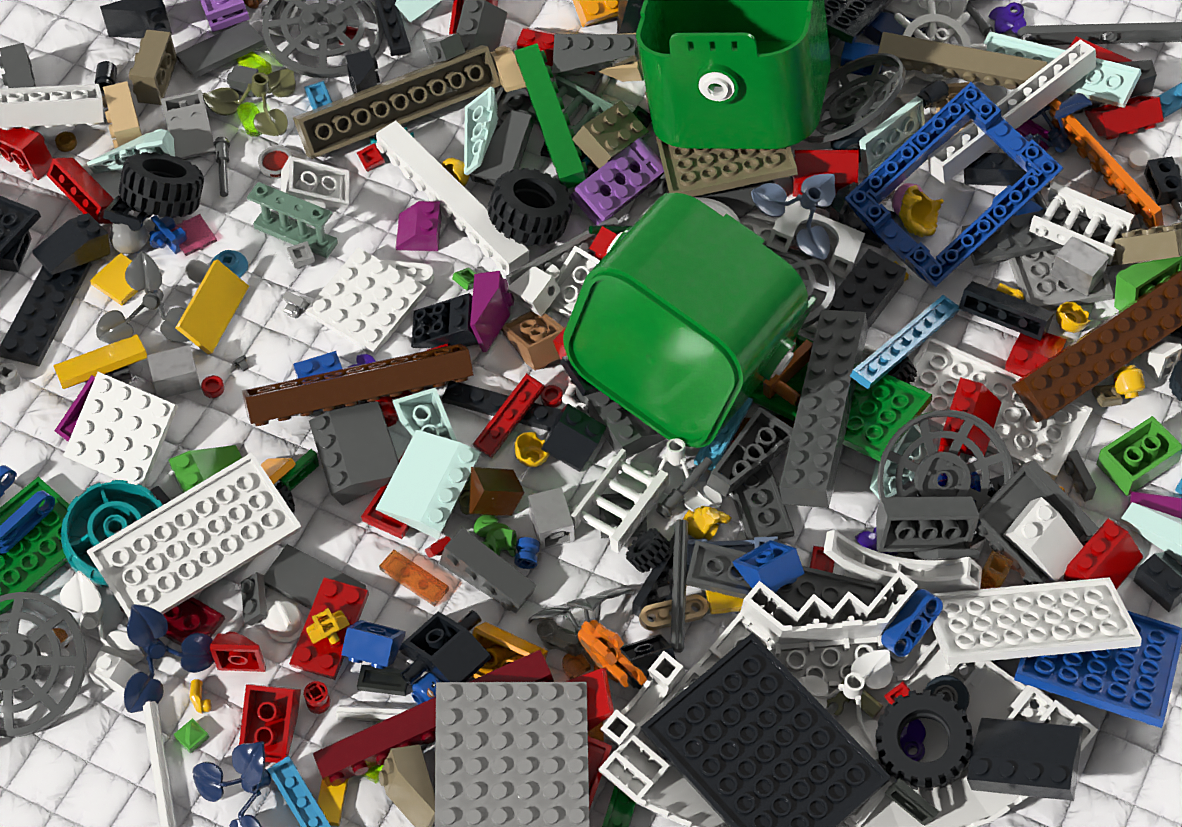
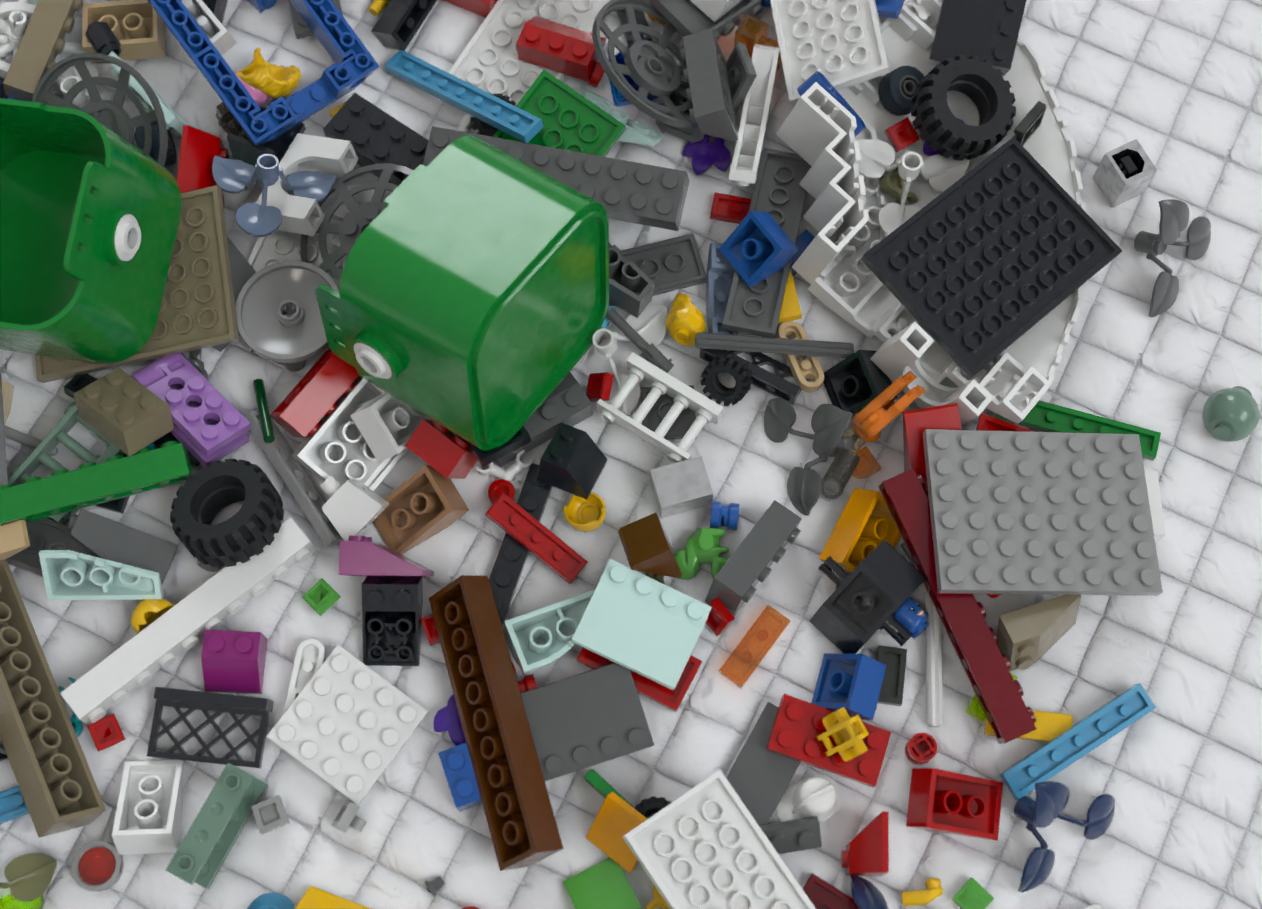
camera: 90 degrees left, 15 degrees up
(388, 220) = (209, 702): none -> black fence
(642, 459) = (599, 386): none -> red tile

